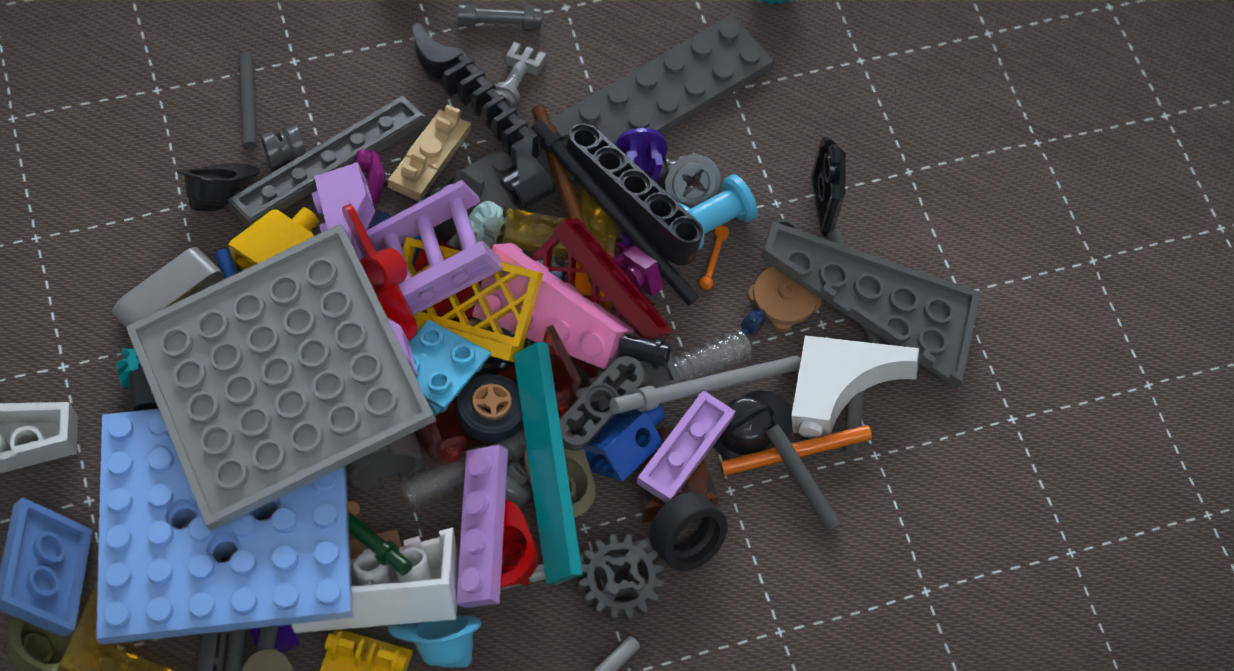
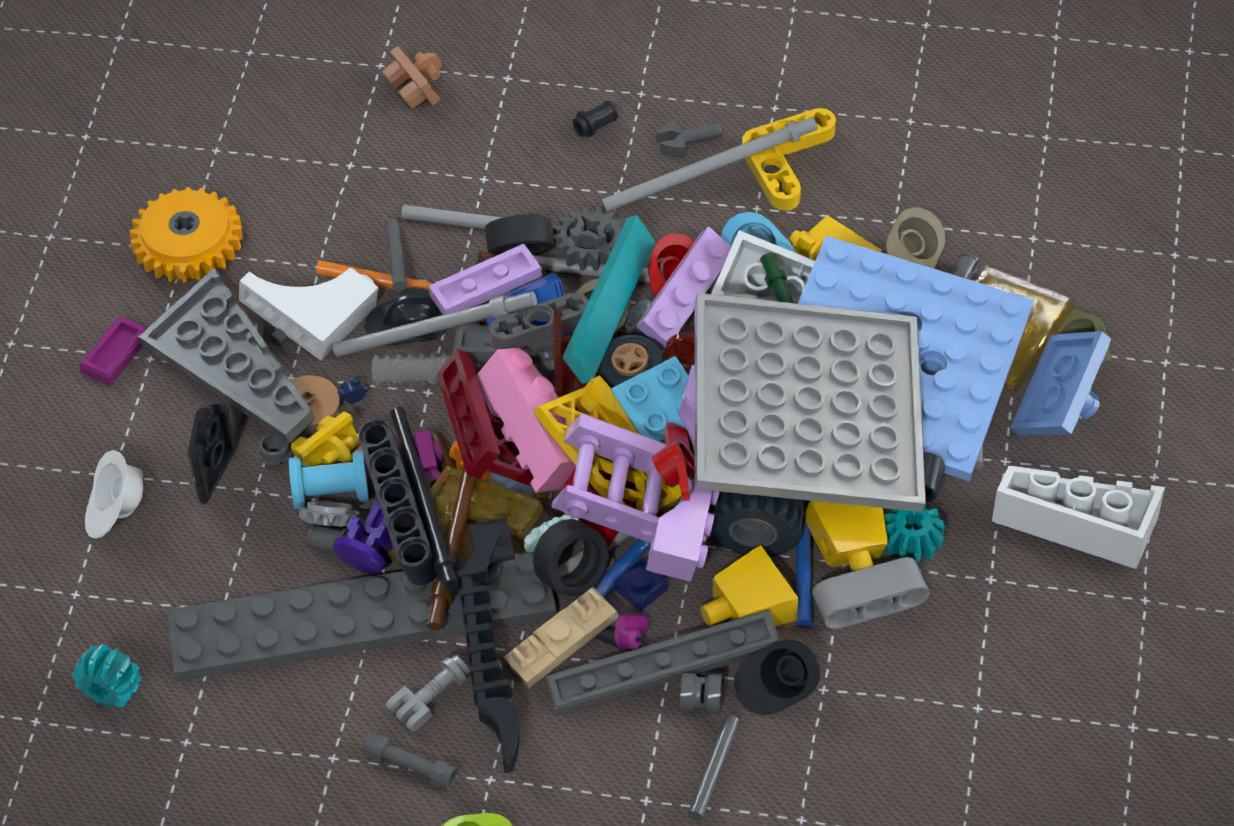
camera: 145 degrees left, 10 degrees down
(646, 350) = (474, 343): black pin -> none
(732, 246) = (330, 444): none -> yellow hips
(778, 561) = (446, 216): none -> light grey bar
(885, 135) = (114, 493): none -> white piece
(996, 283) = (113, 351): none -> magenta tile
(1031, 445) = (186, 234): none -> light orange gear

